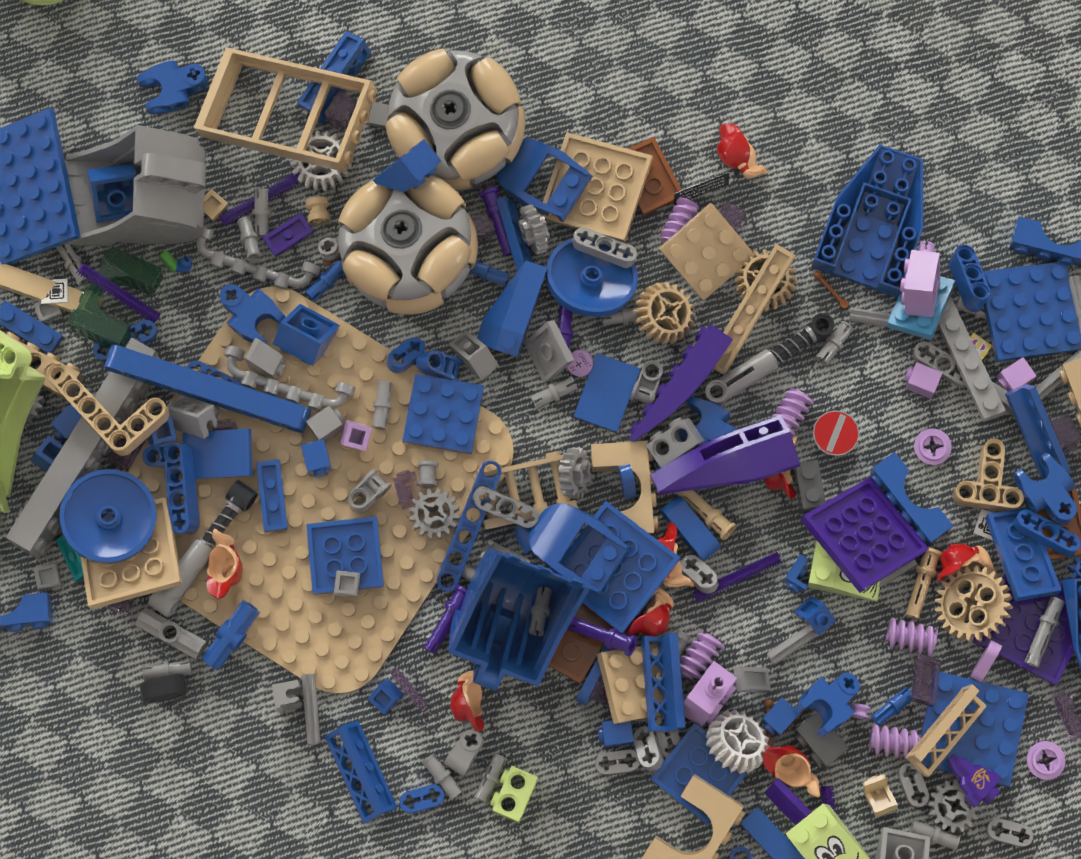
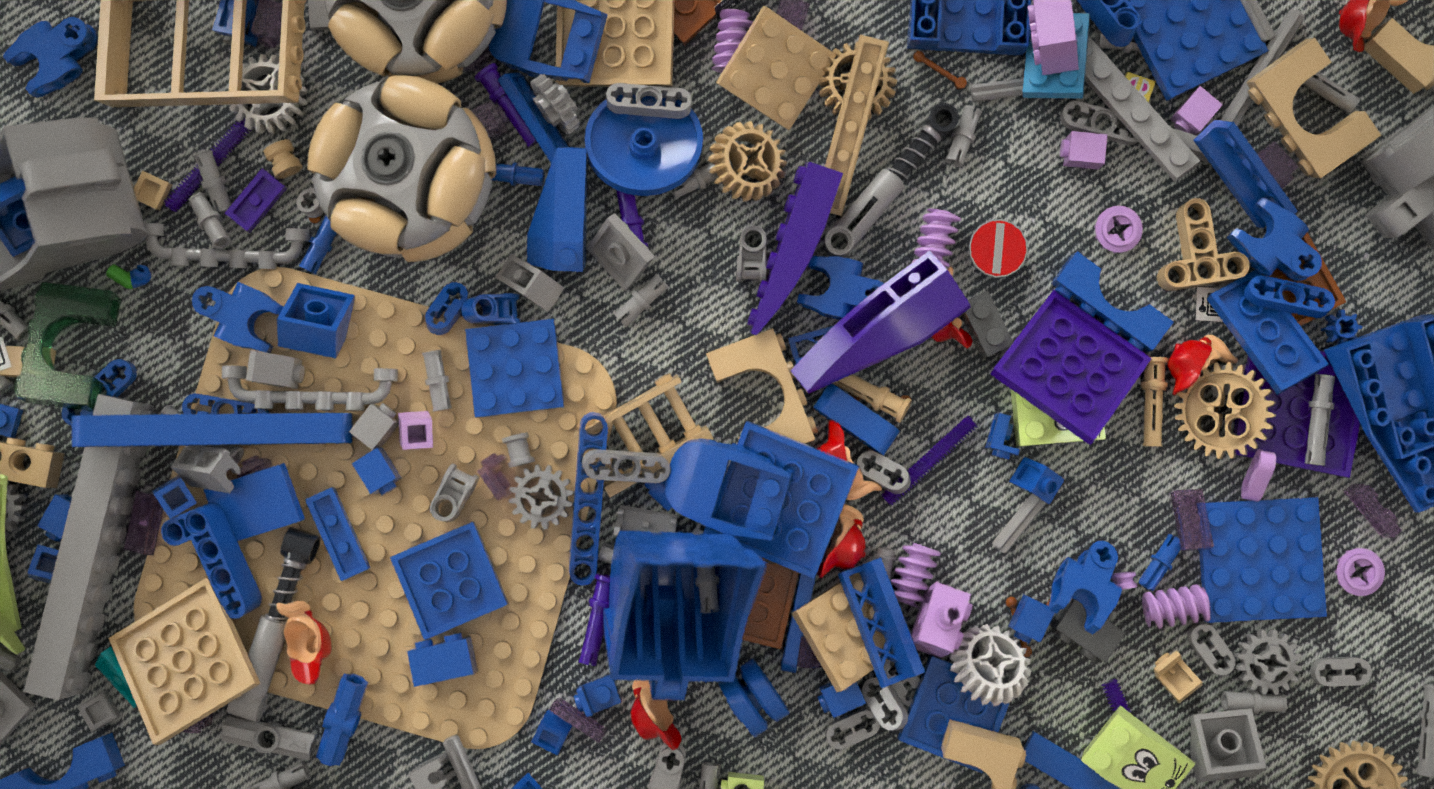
camera: 10 degrees left, 10 degrees up
(100, 415) = (88, 505): tan beam -> none
(108, 516) = (141, 627): blue dish -> none
(118, 292) = (66, 339): dark purple axle -> none
(321, 612) = (442, 660): none -> blue brick
(347, 584) = (462, 617): light grey tile -> none
(410, 168) = (375, 76): blue slope -> none
(429, 678) = (597, 695): none -> blue bracket
(547, 711) = (750, 699): none -> blue wheel
(575, 472) = (697, 395): light grey gear -> none
(582, 363) = (665, 253): lavender piece -> none
(606, 393) = (705, 280): blue tile -> none
(610, 638) = (802, 589): dark purple pin -> none
(627, 482) = (764, 386): blue beam -> none
(676, 445) = (810, 323): light grey brick -> none
(752, 679) = (985, 584): light grey tile -> none
(787, 802) = (1070, 717): dark purple tile -> none
(791, 768) = (1065, 676): light nougat hair -> none
(911, 636) = (1160, 471): lavender piece -> none
(941, 727) = (1232, 576): tan fence -> none
(974, 780) = (1288, 627): dark purple rock -> none

